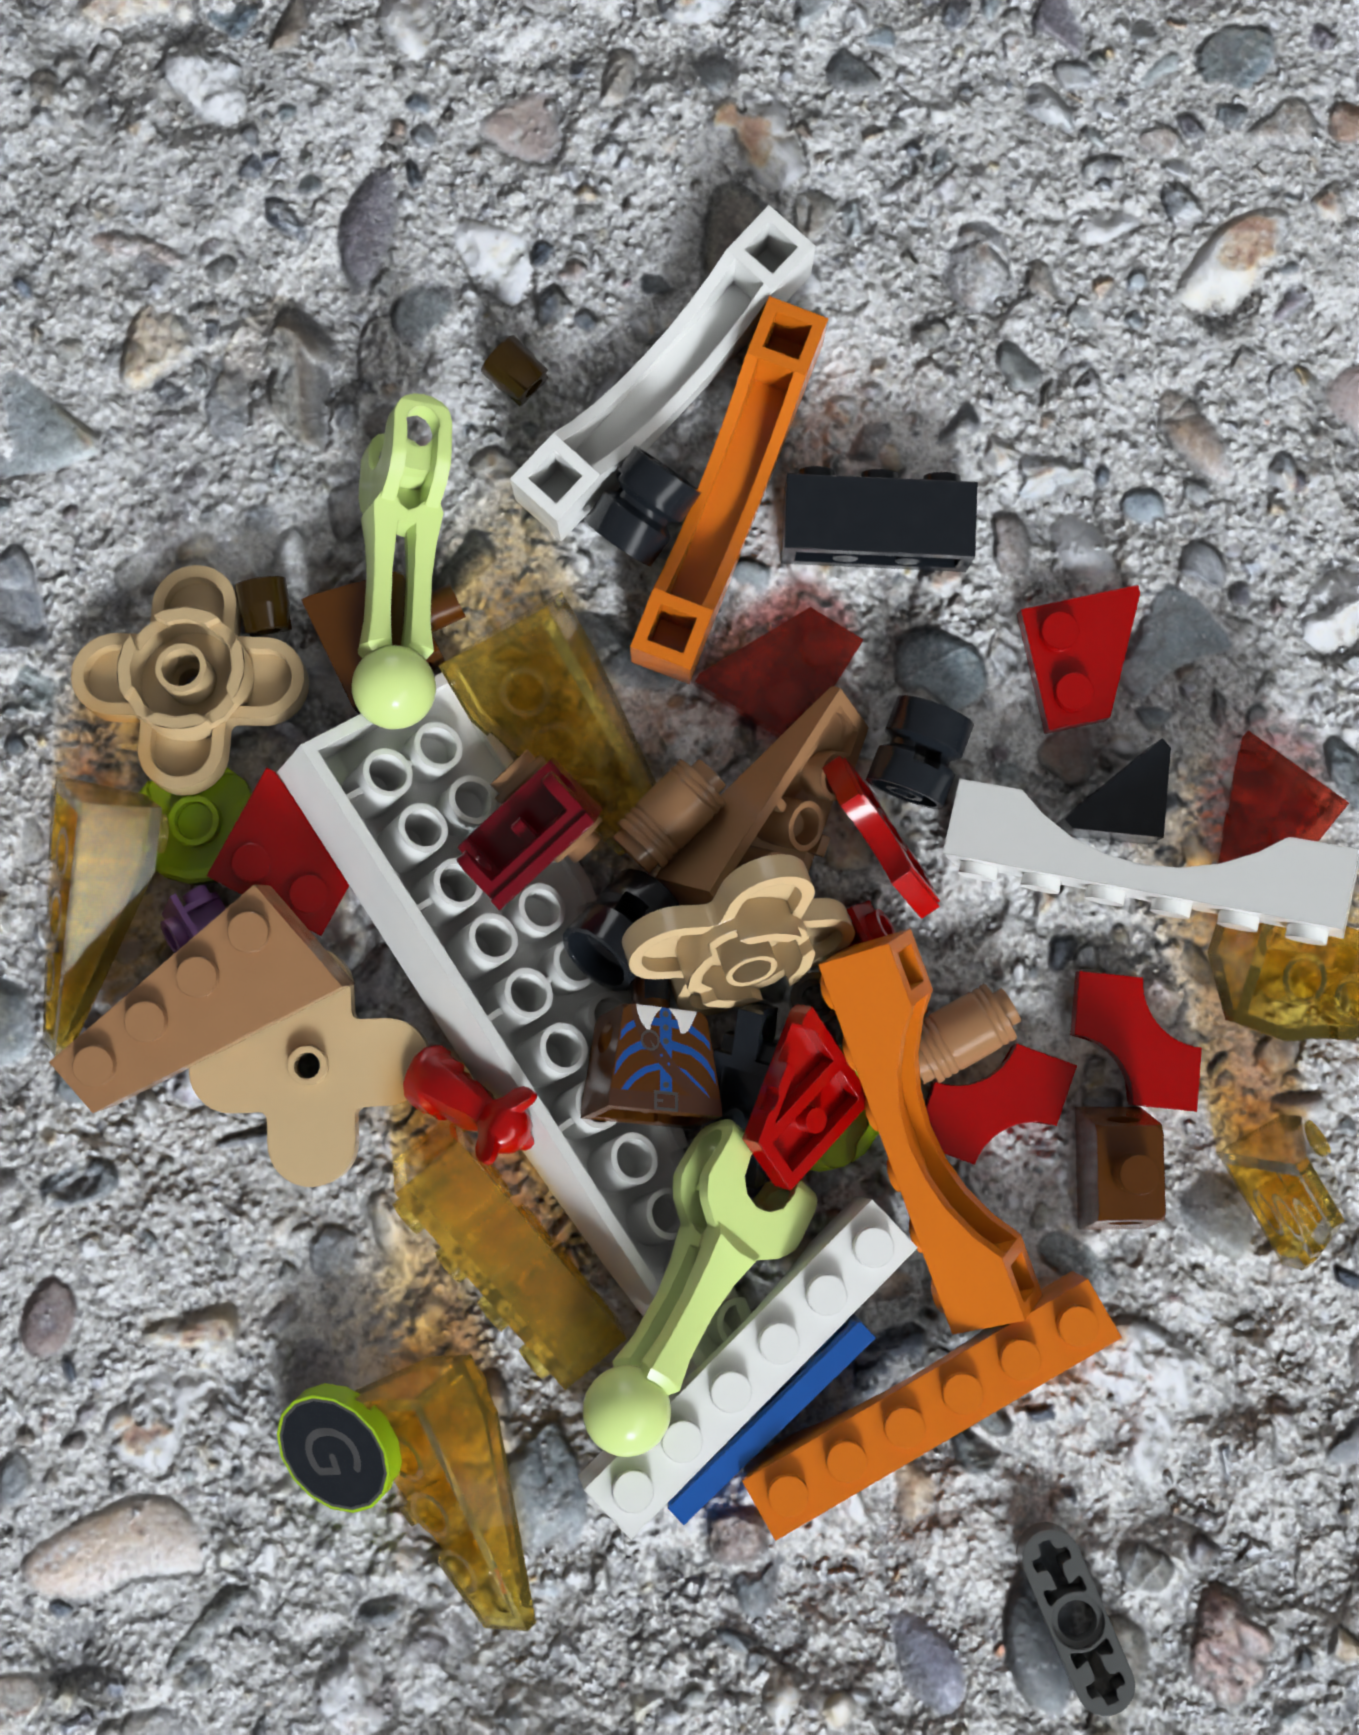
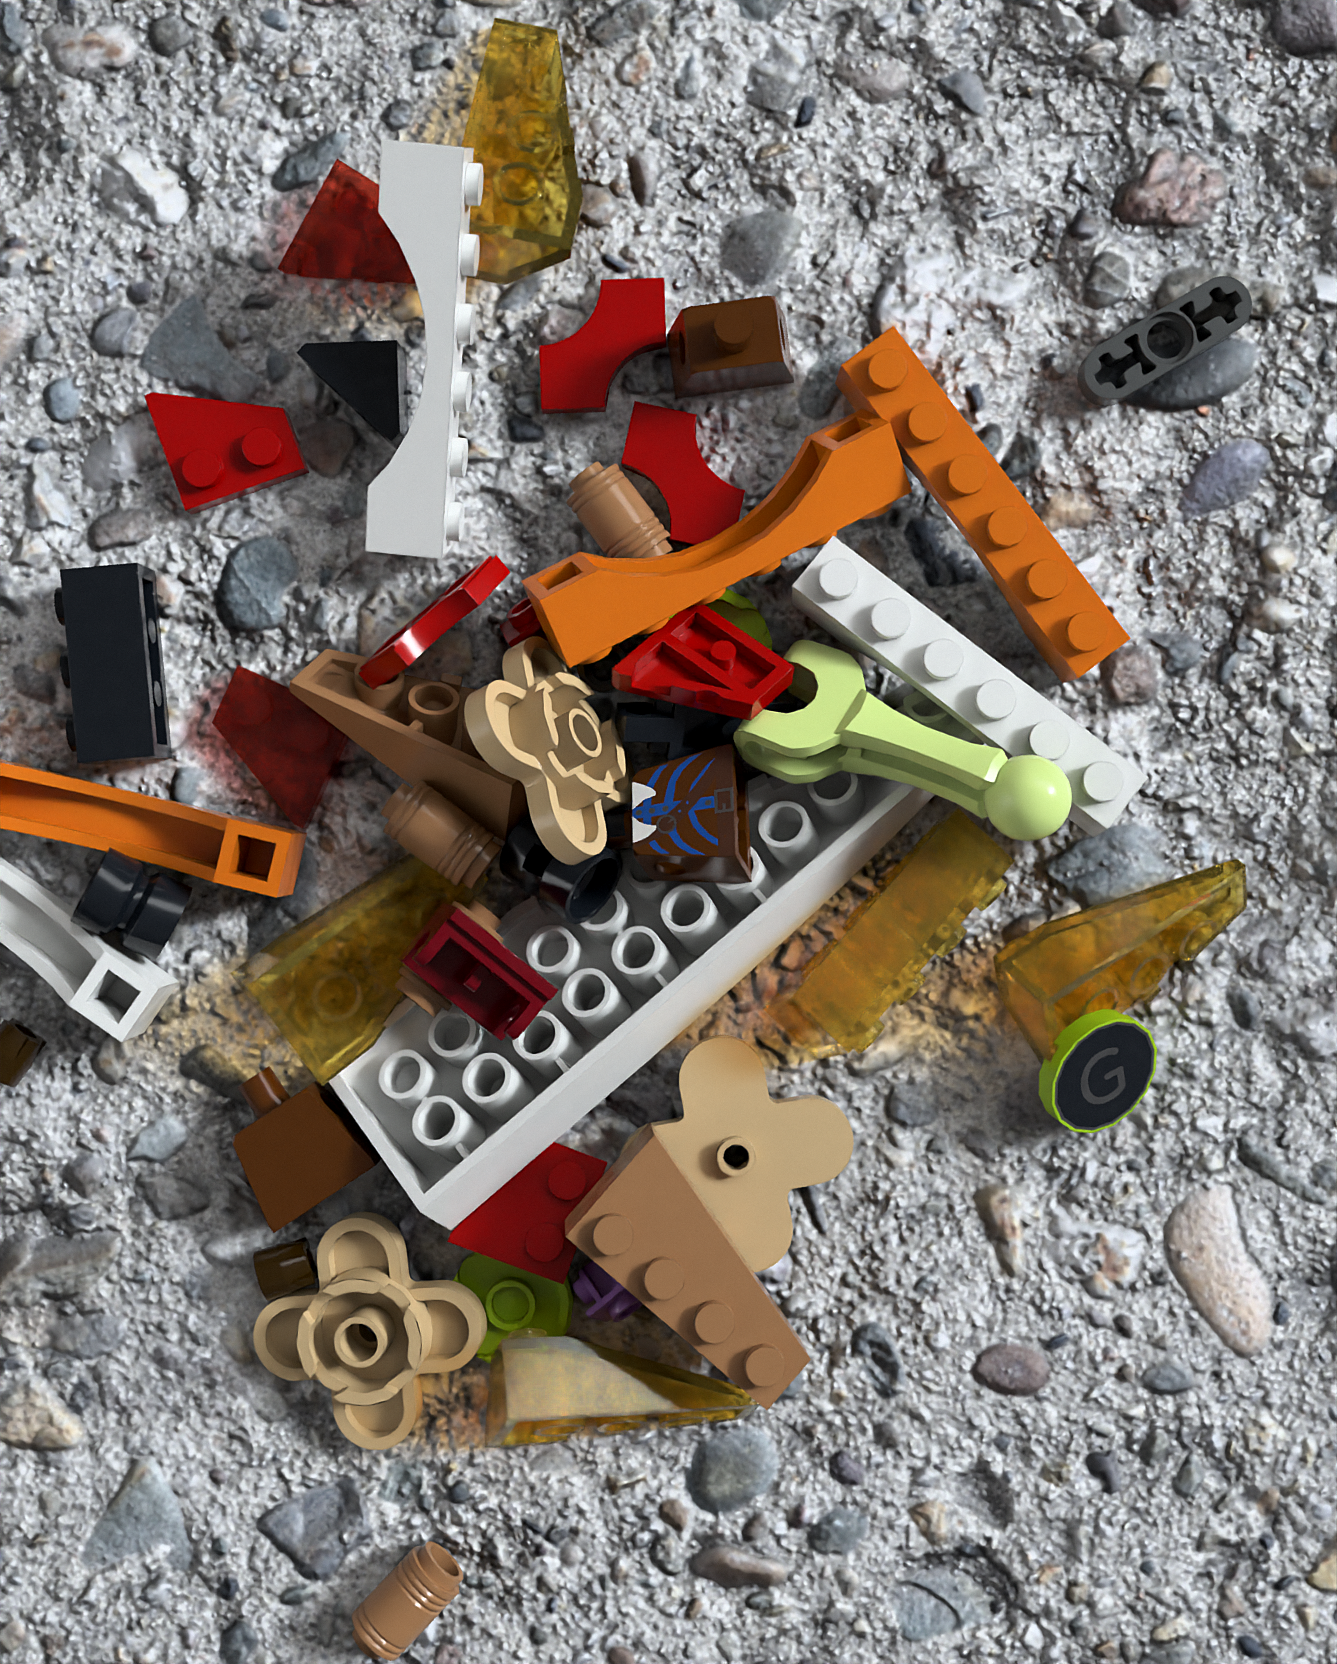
camera: 95 degrees left, 5 degrees up
(401, 498) = (155, 1150): yellowish green piece -> none
(443, 1089) = (742, 1019): red animal -> none
(772, 1417) = (1013, 655): blue tile -> none
(924, 730) = (321, 591): black wheel -> none
(1288, 1186) = (726, 178): clear yellow wedge -> none

